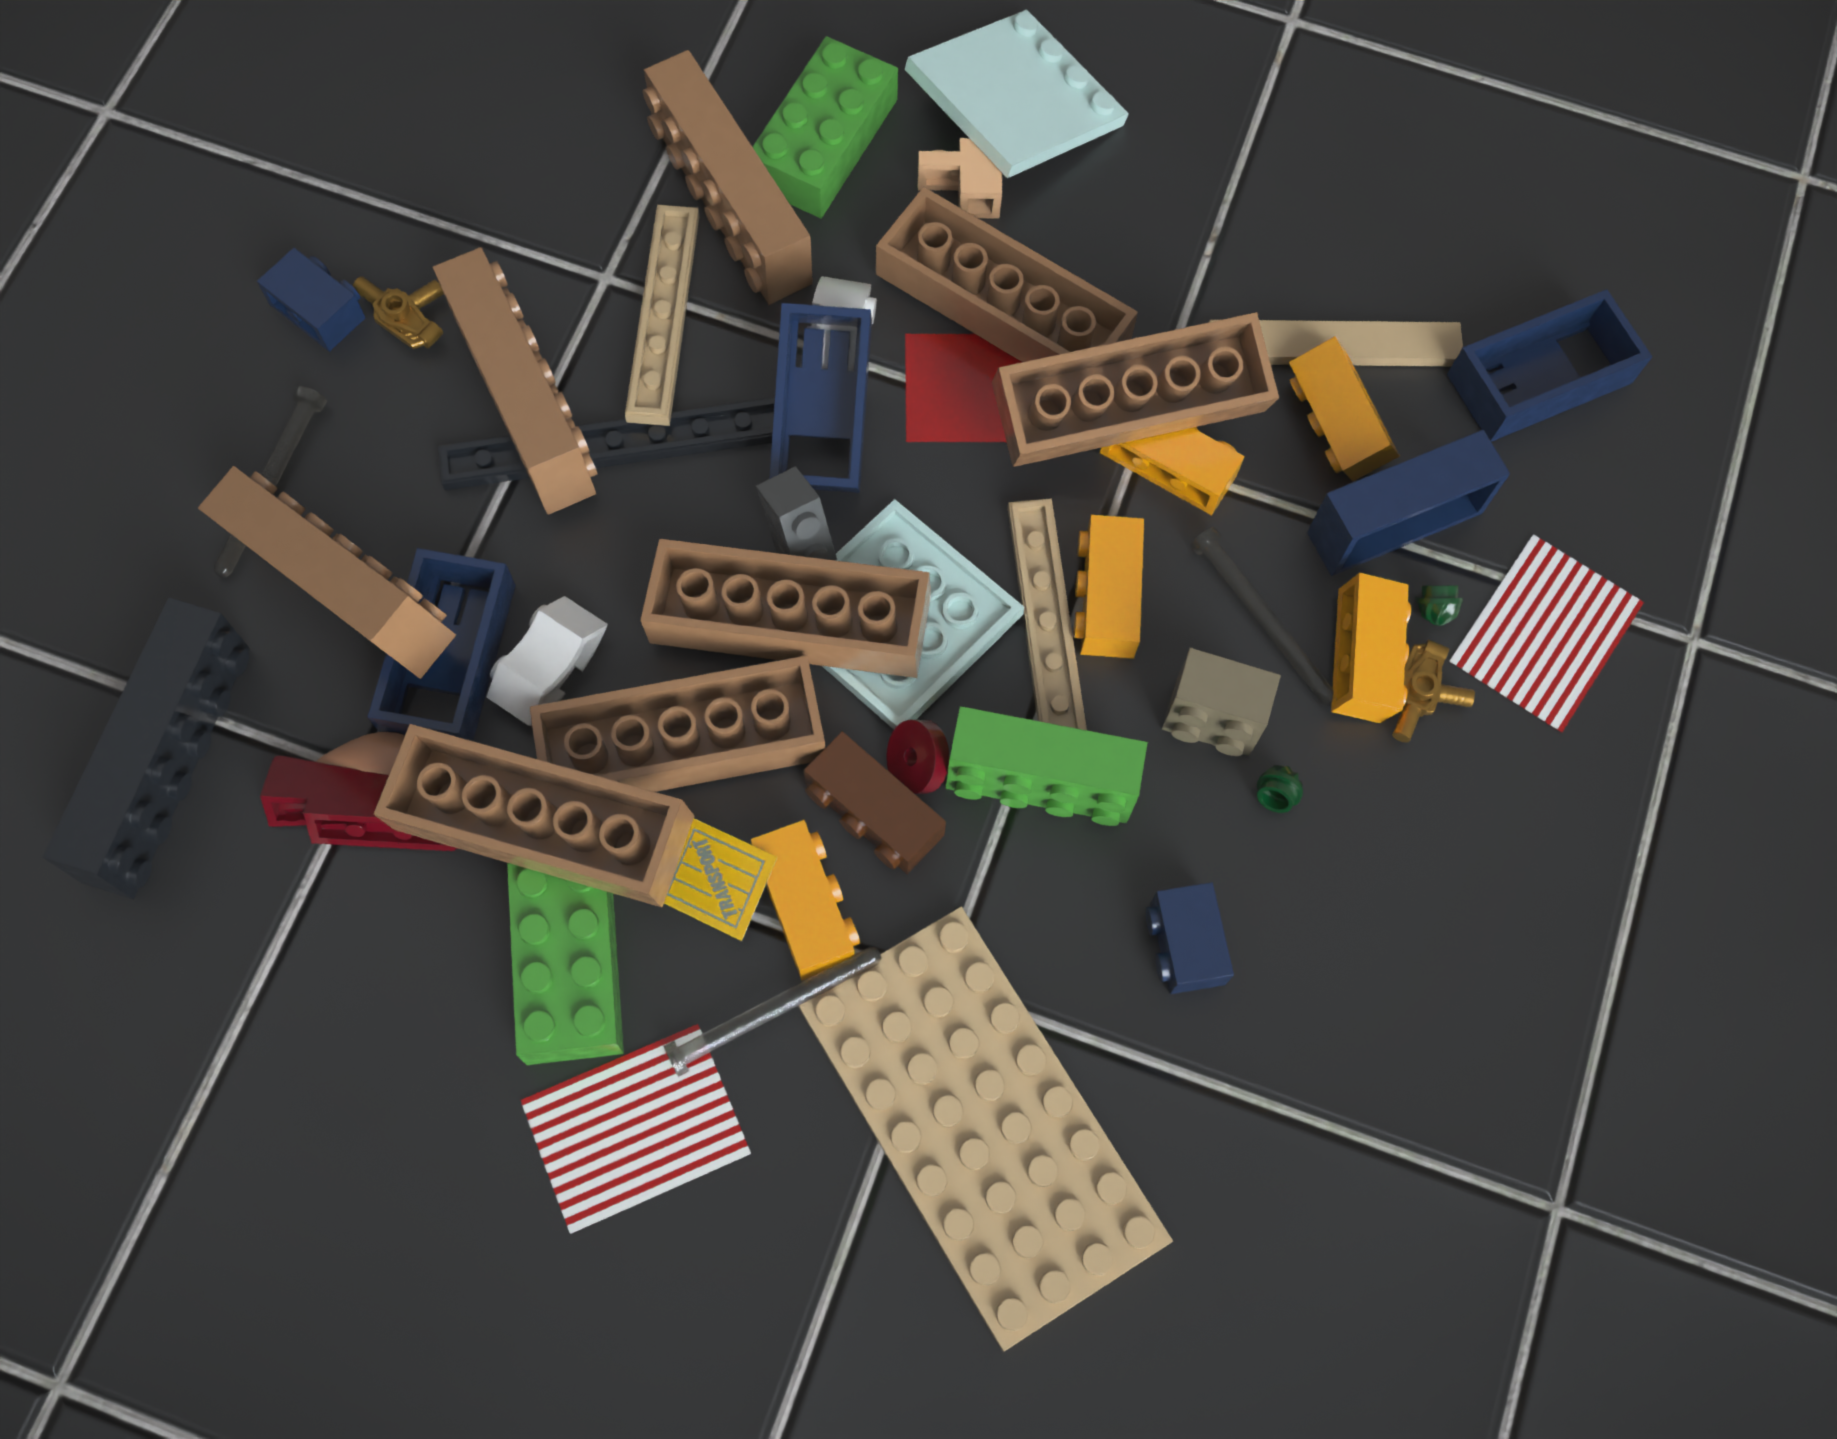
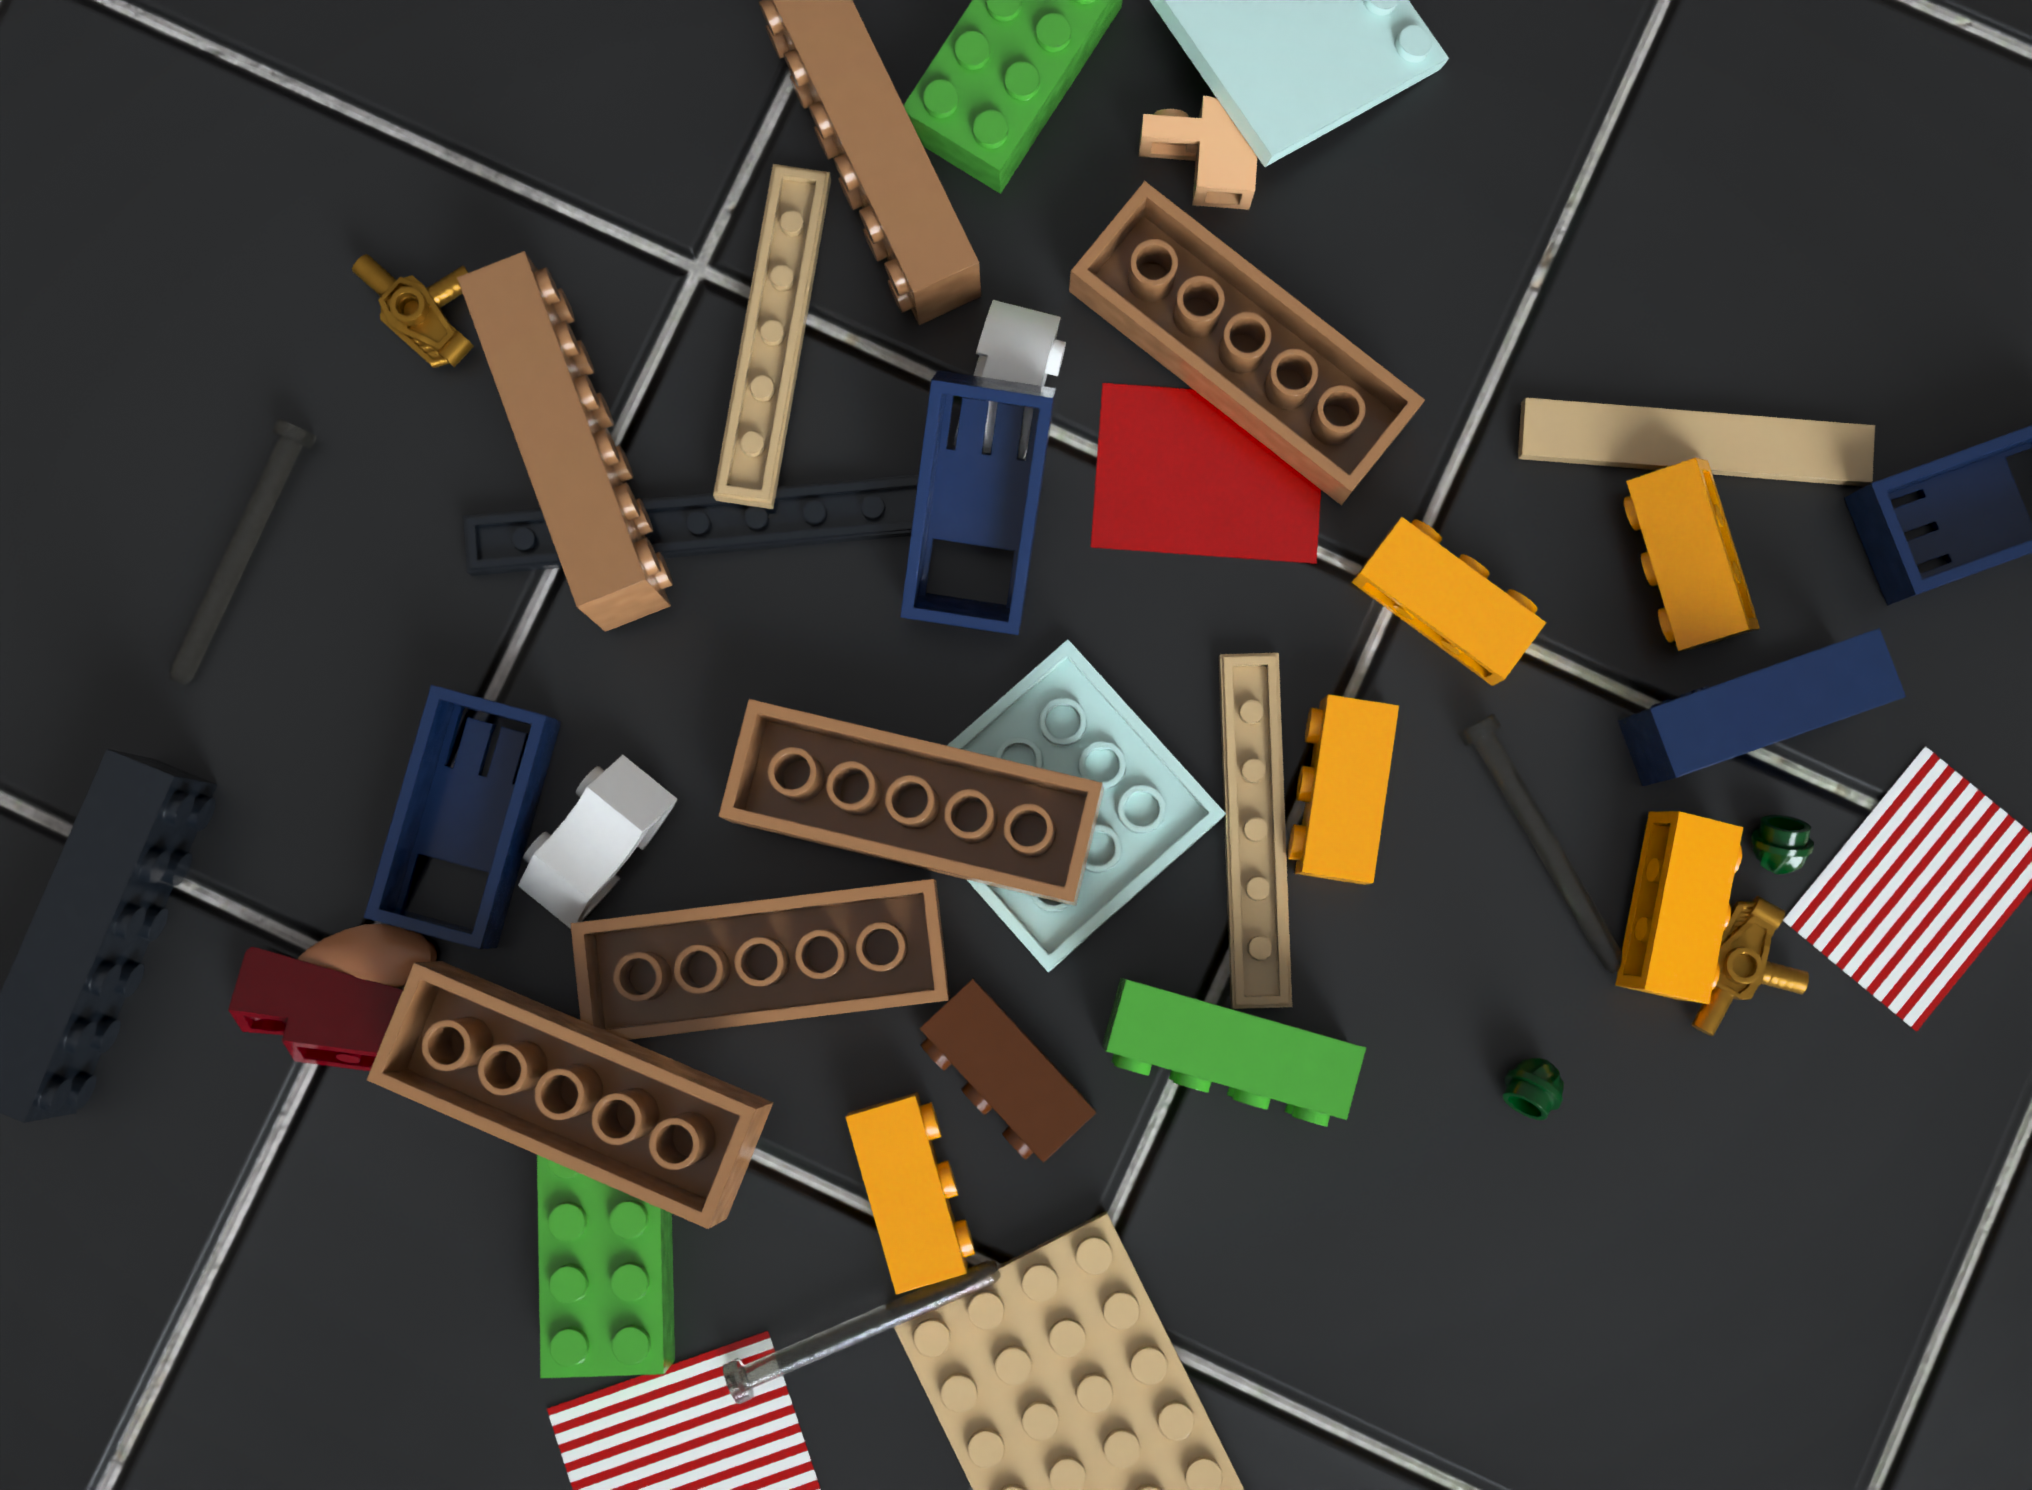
camera: 10 degrees right, 15 degrees up
(312, 298) = (296, 285): dark blue brick -> none
(330, 569) = (312, 722): medium nougat brick -> none
(719, 879) = (806, 1159): yellow sticker -> none
(795, 516) = (933, 681): dark grey brick -> none
(918, 755) = (1068, 1015): dark red piece -> none
(1134, 389) = (1408, 534): medium nougat brick -> none
(1189, 938) = (1392, 1282): dark blue brick -> none
(1220, 703) = (1472, 977): dark tan brick -> none

